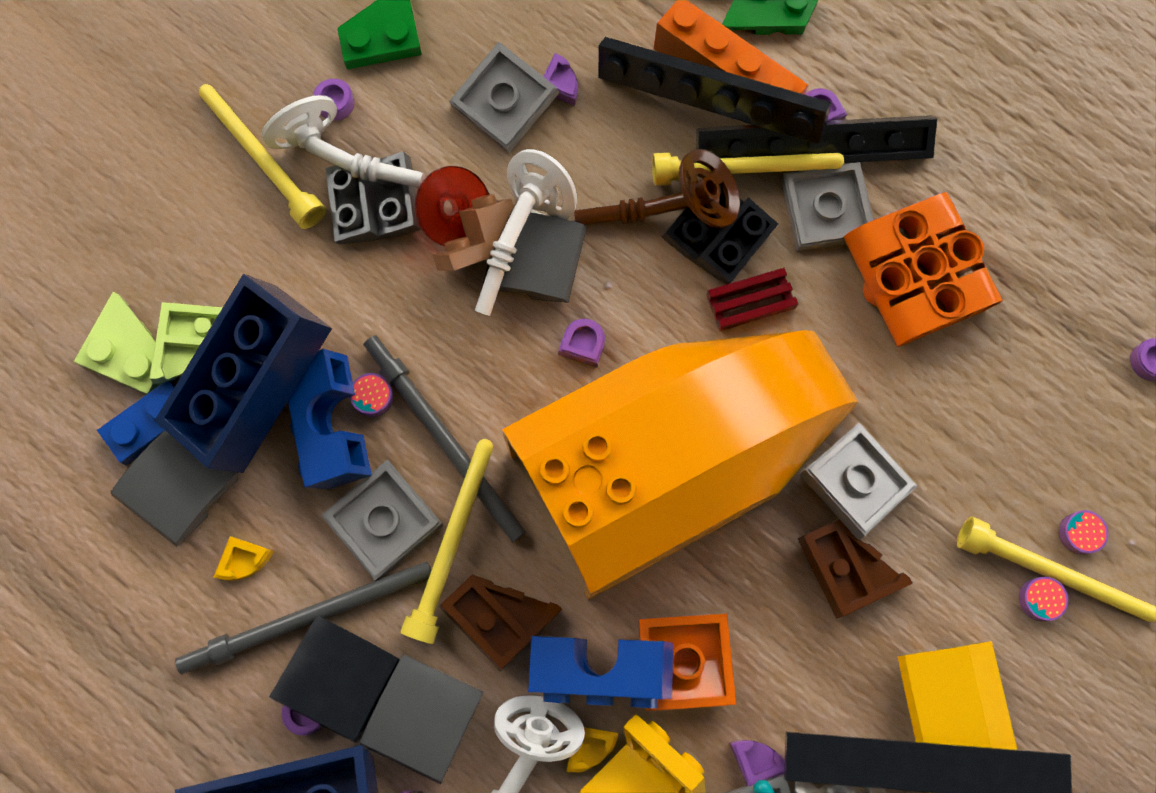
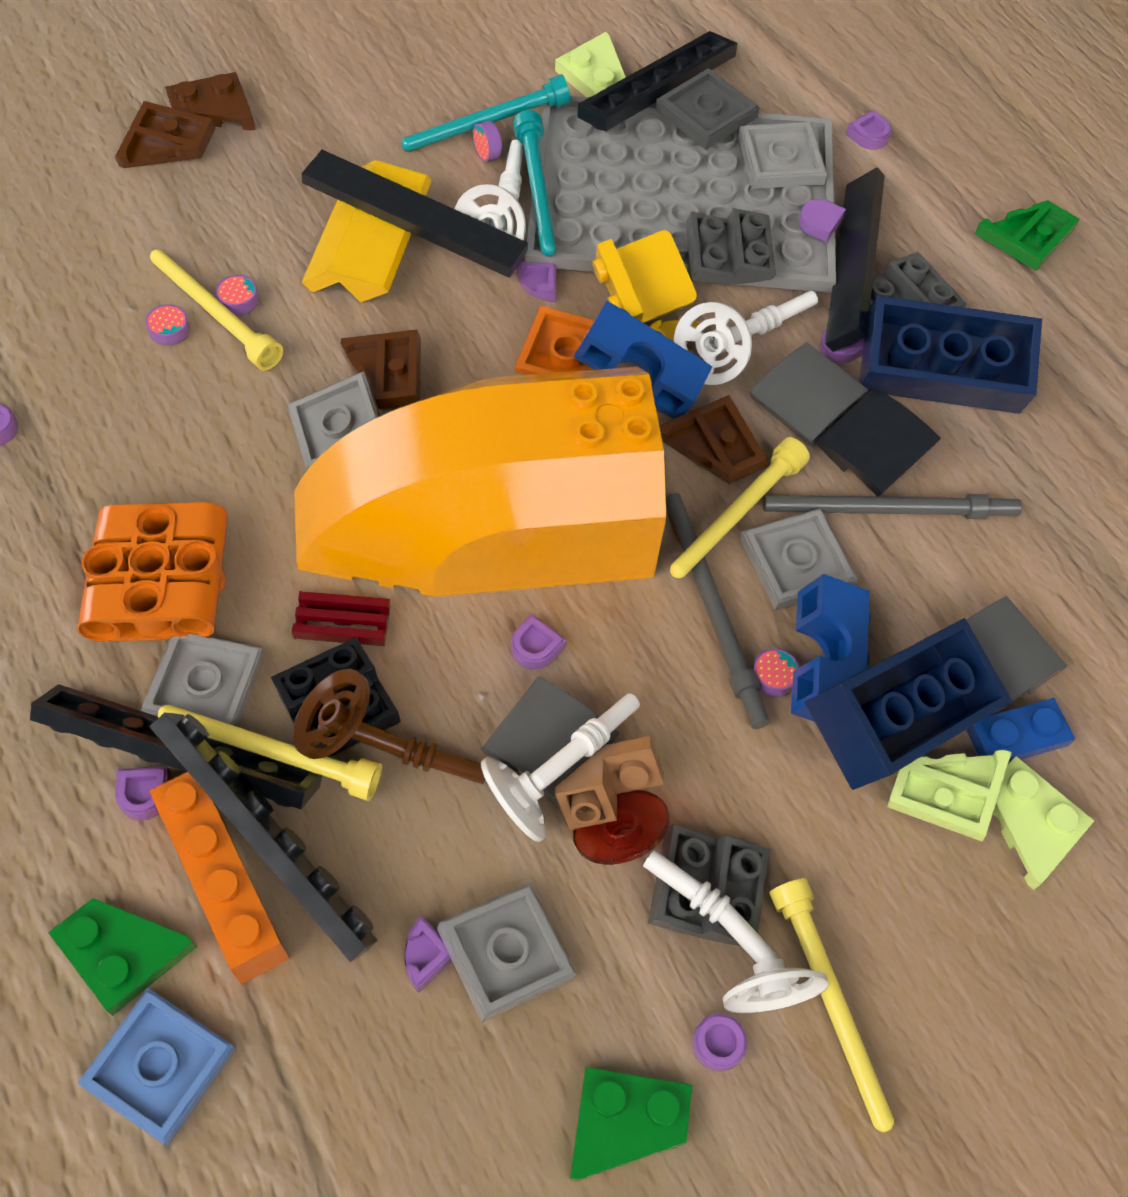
camera: 160 degrees left, 15 degrees down
(241, 560) = (942, 574): yellow tile -> none

